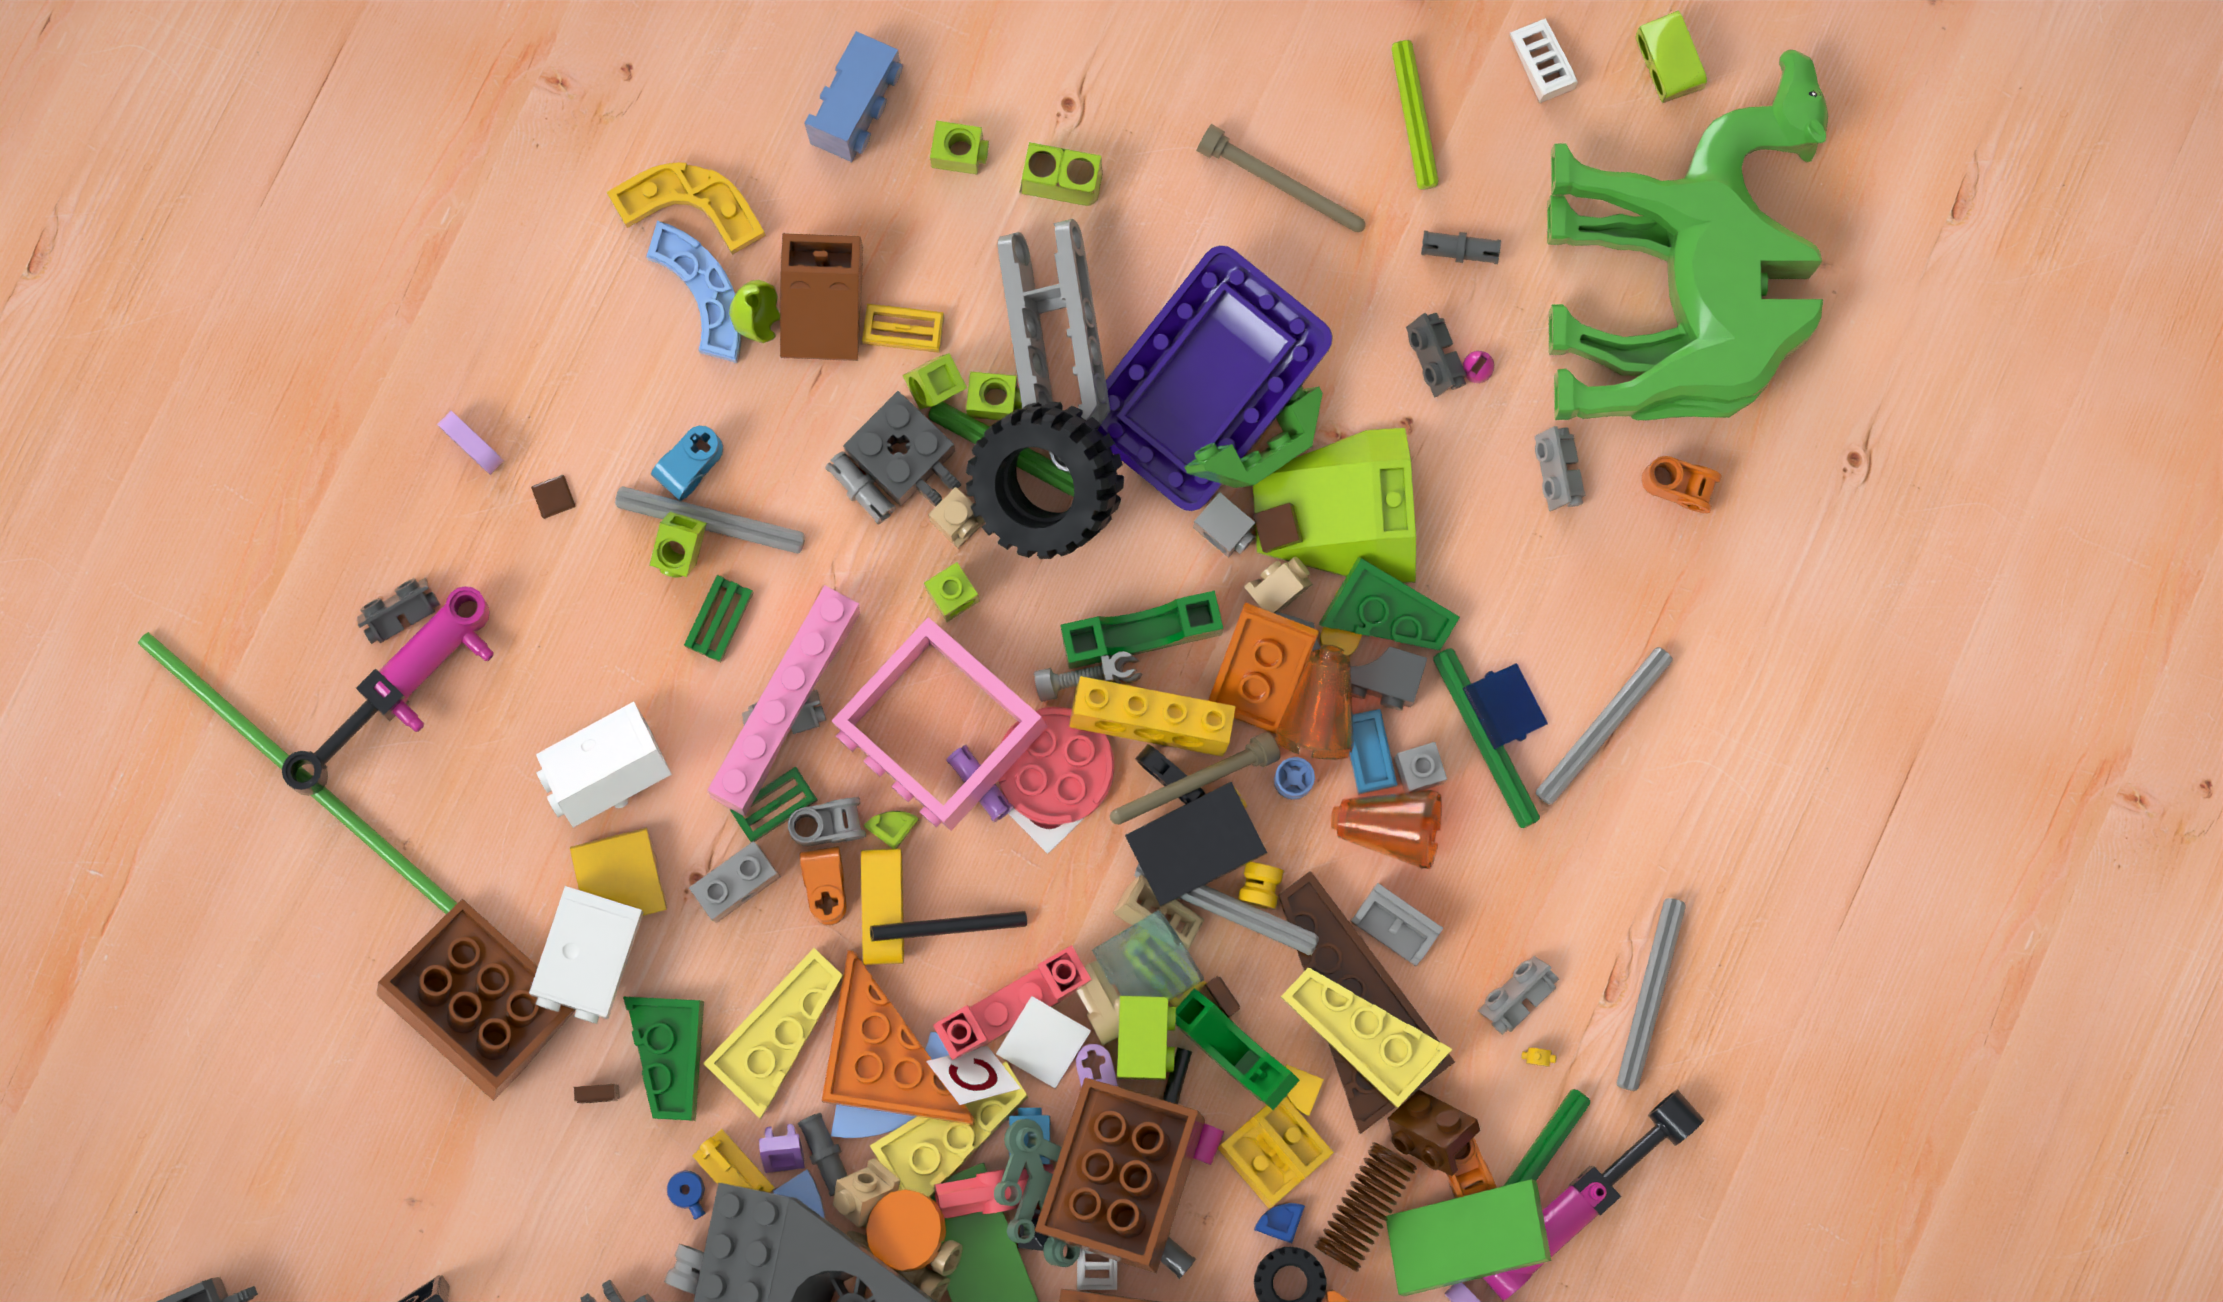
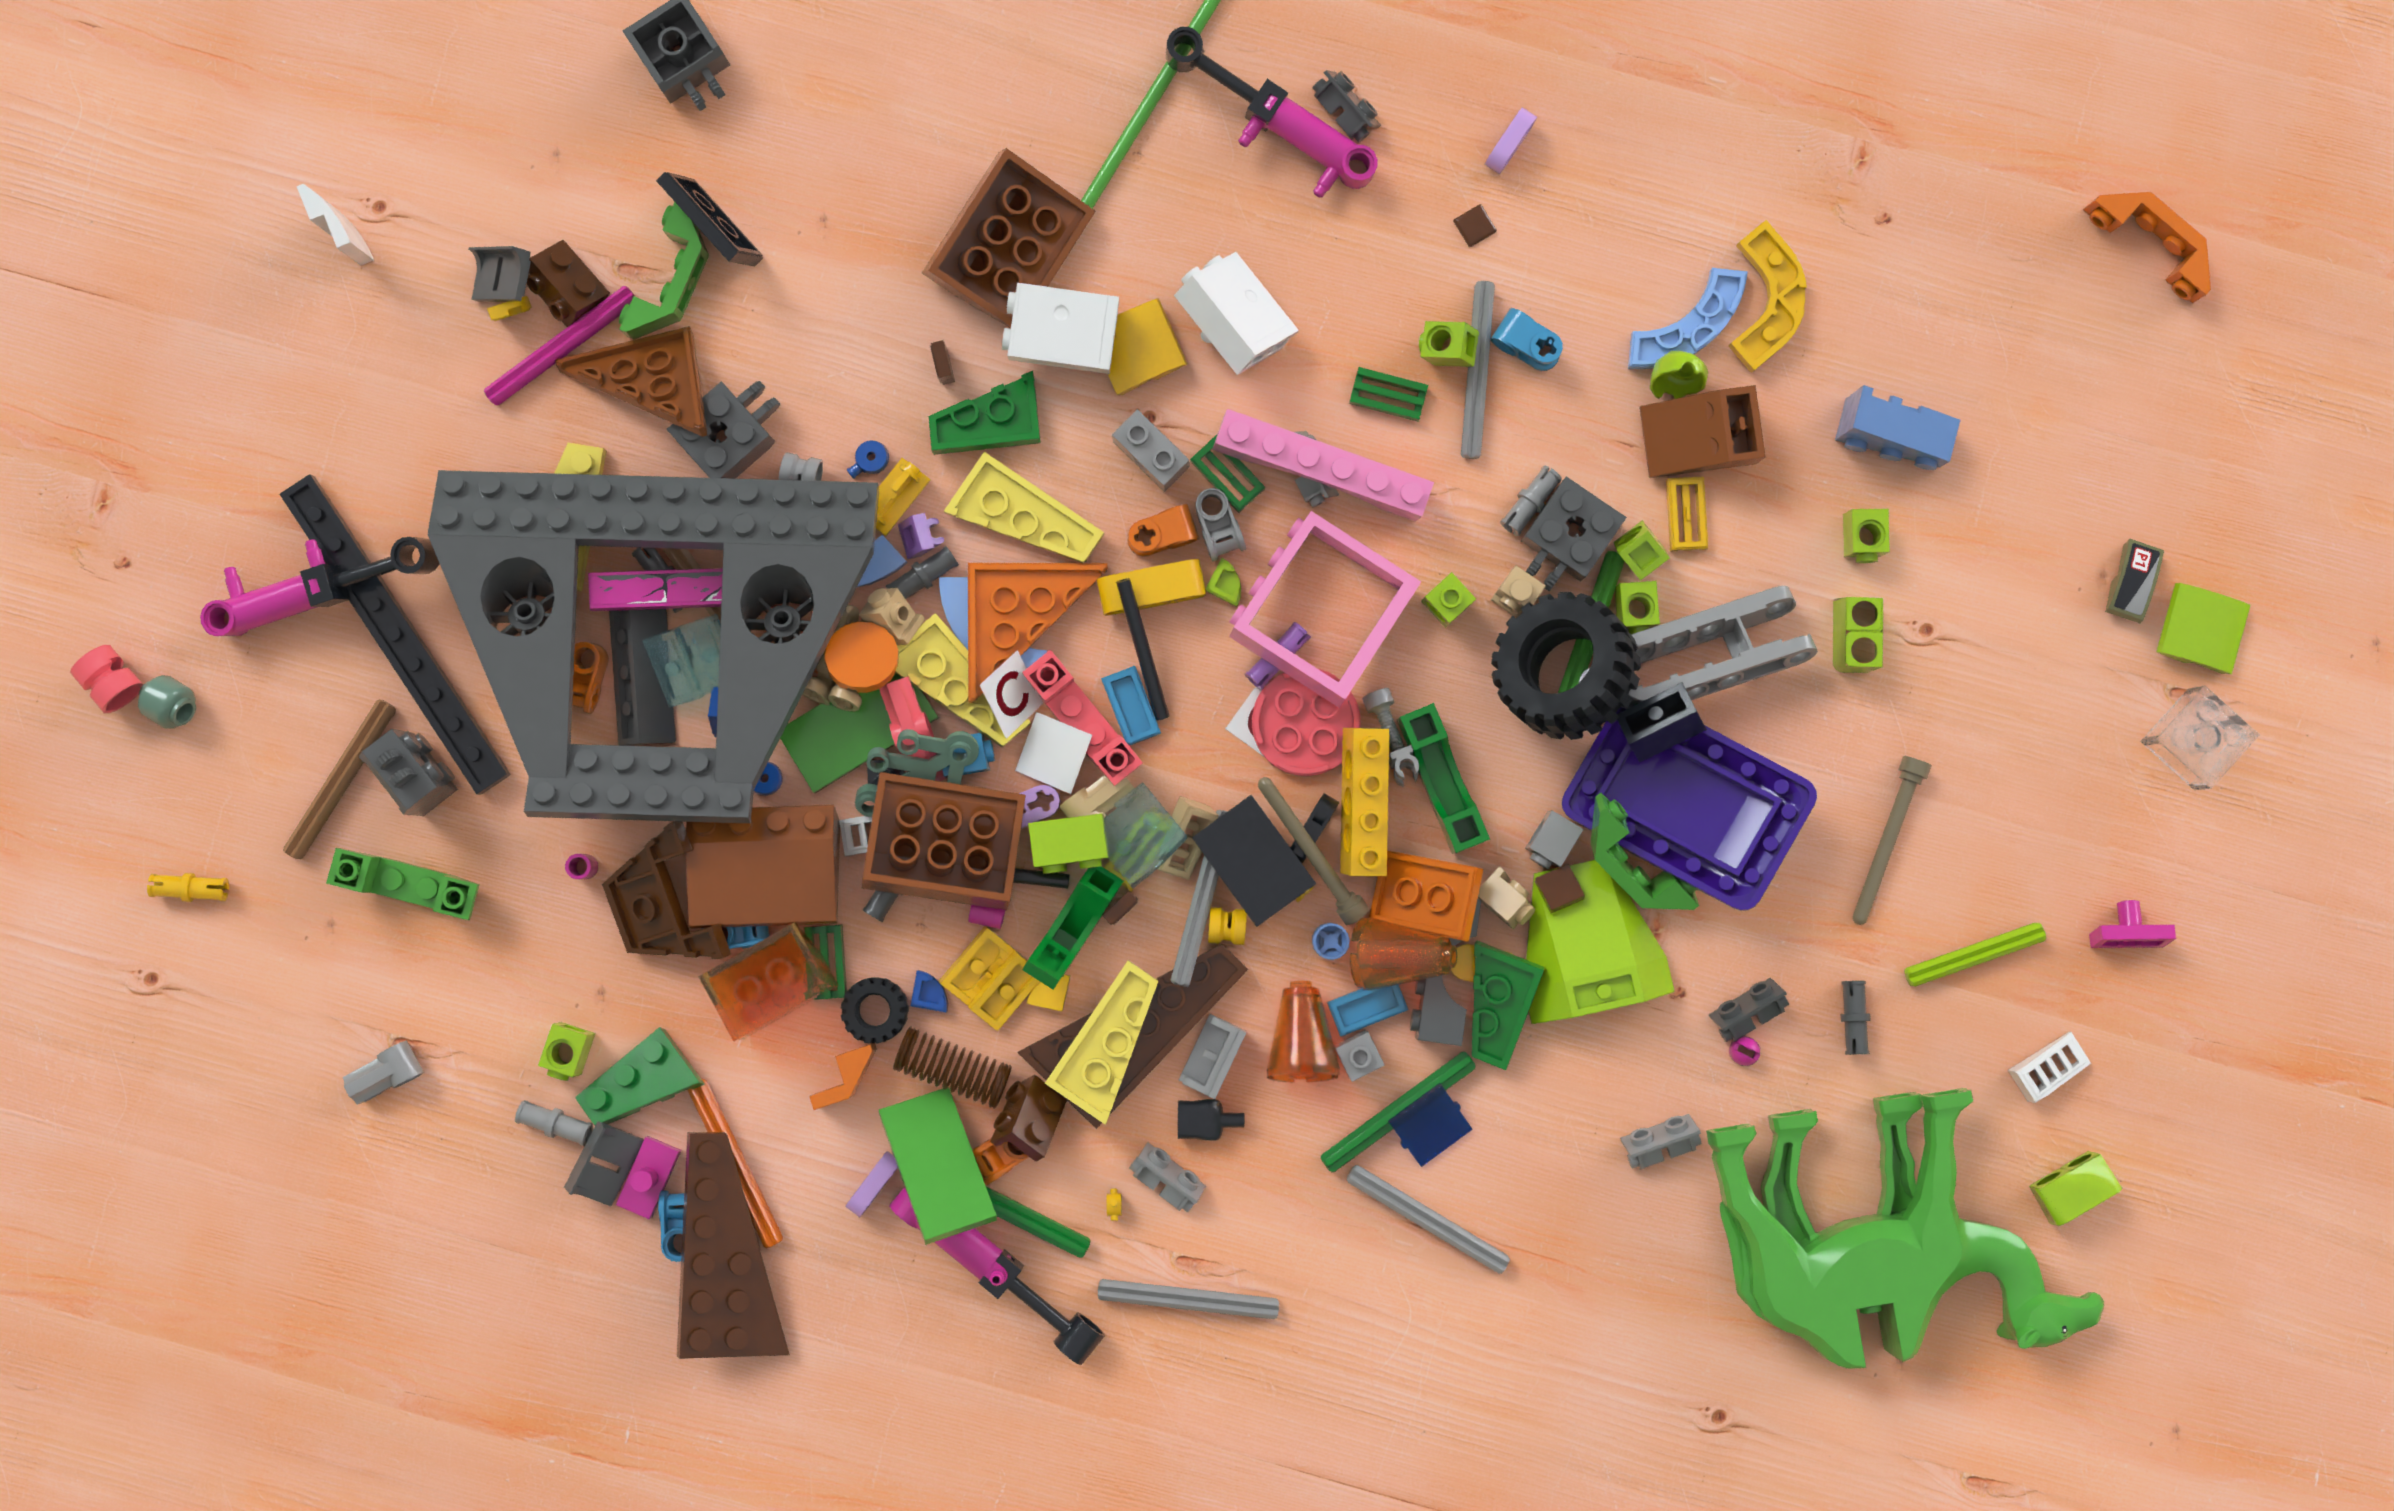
camera: 85 degrees right, 5 degrees up
(1006, 950) = (1131, 706): none -> dark azure tile
(1121, 392) = (1660, 722): none -> black brick
(1463, 944) = (1205, 1119): none -> black piece
(1684, 483) = (1667, 1265): orange piece -> none

